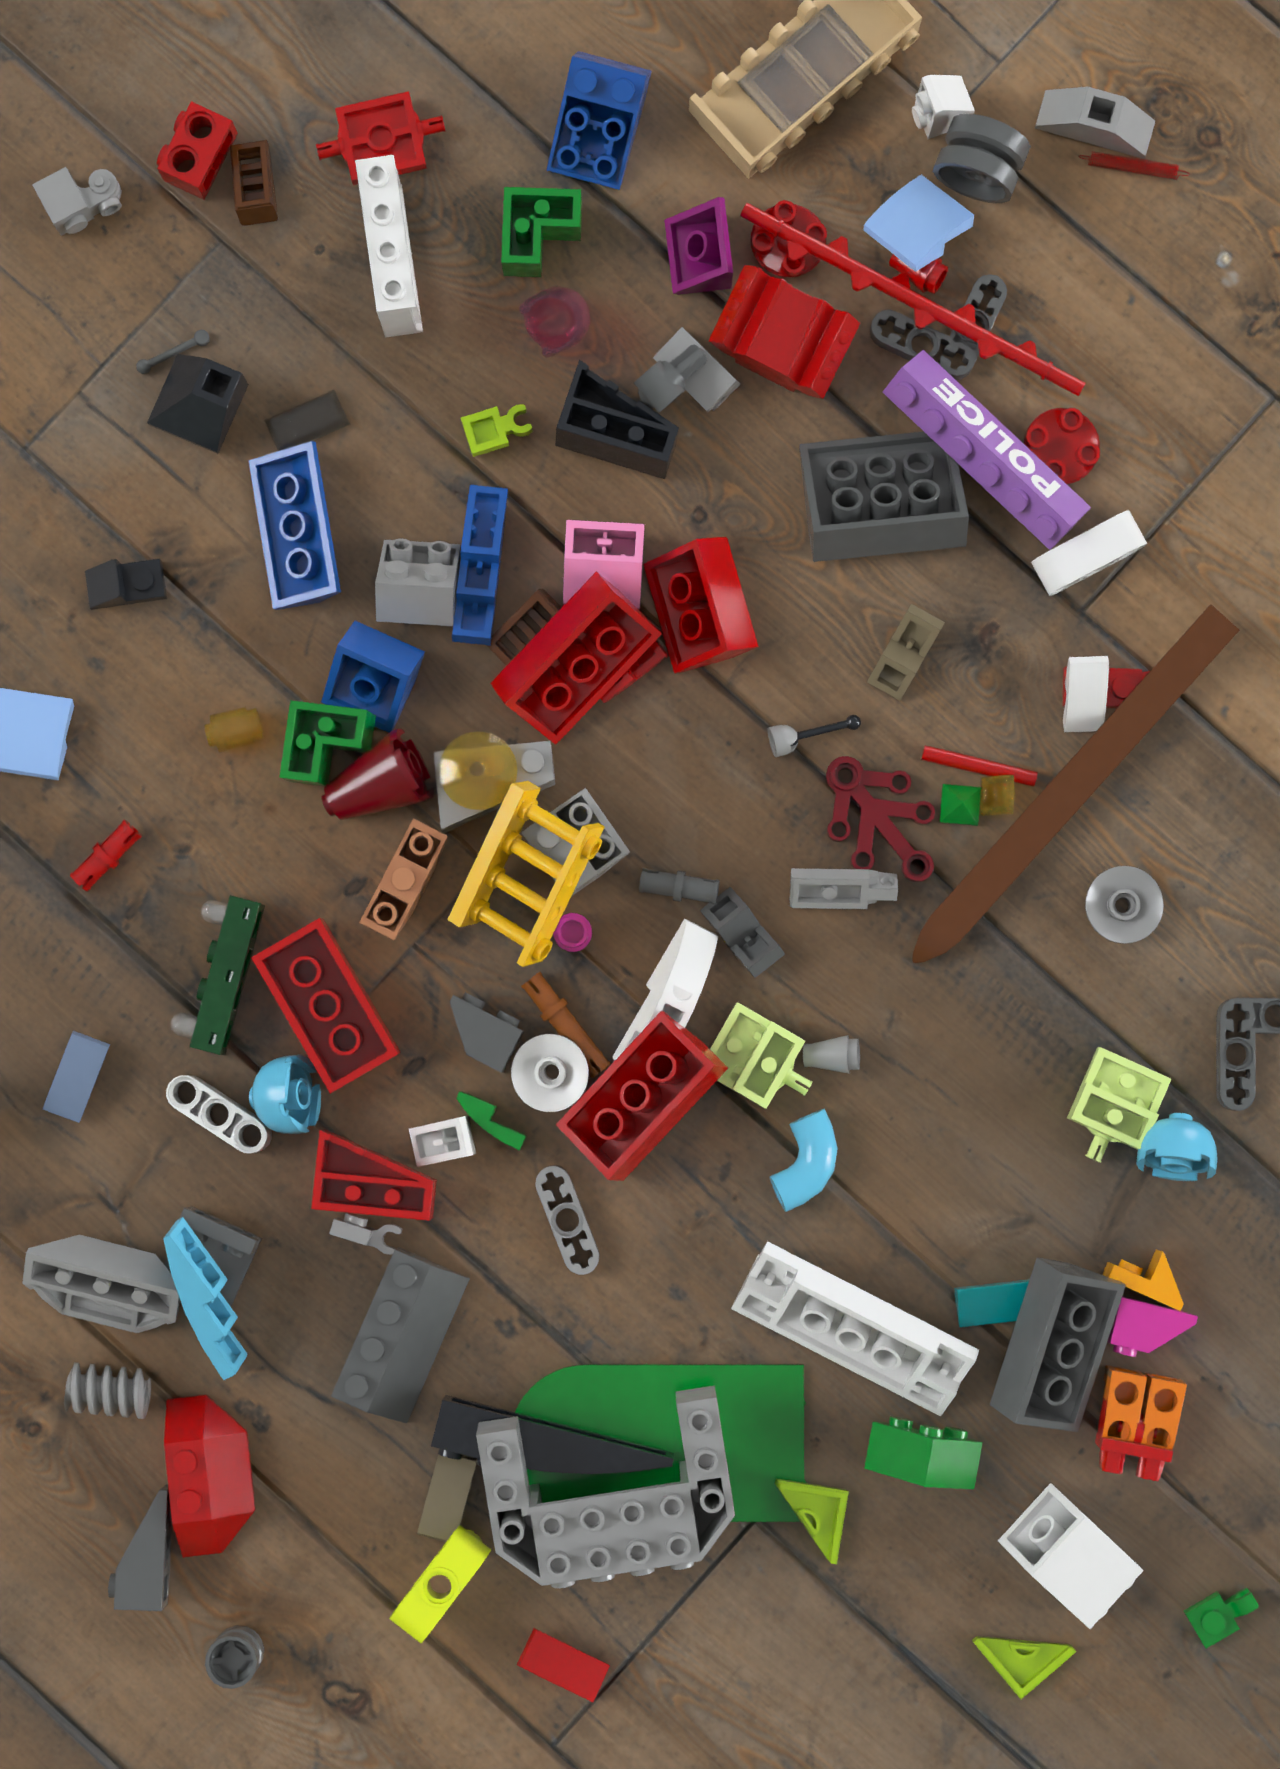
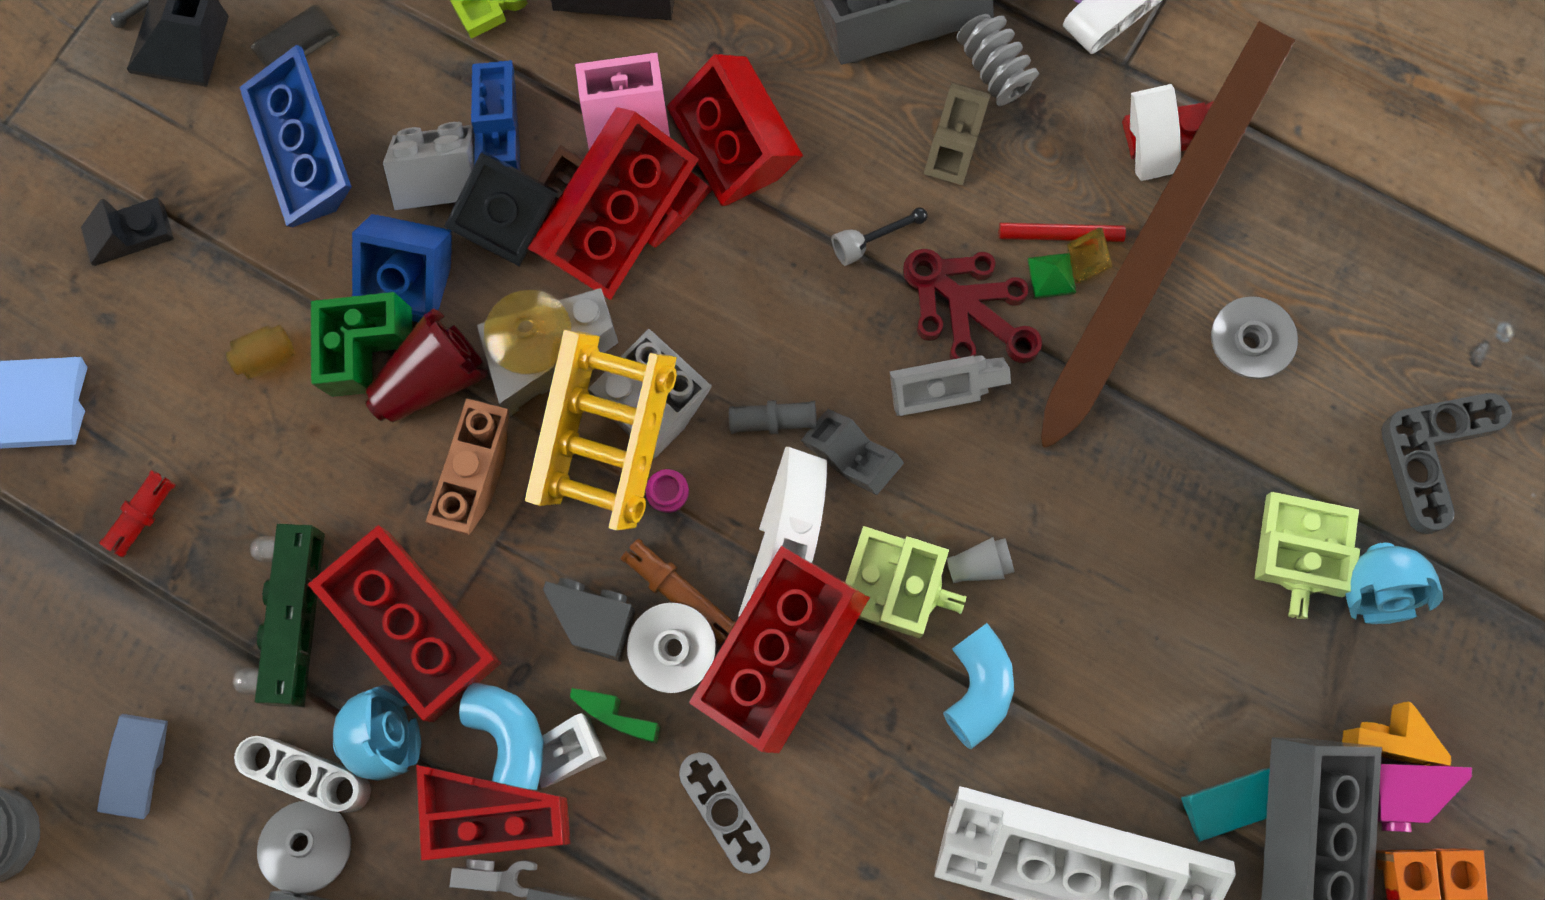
camera: 10 degrees left, 10 degrees down
(214, 1193) = (315, 865): none -> light grey dish
(403, 1114) = (514, 730): none -> medium azure cylinder
(473, 642) = (500, 208): none -> black tile
(961, 585) = (996, 58): none -> light grey piece

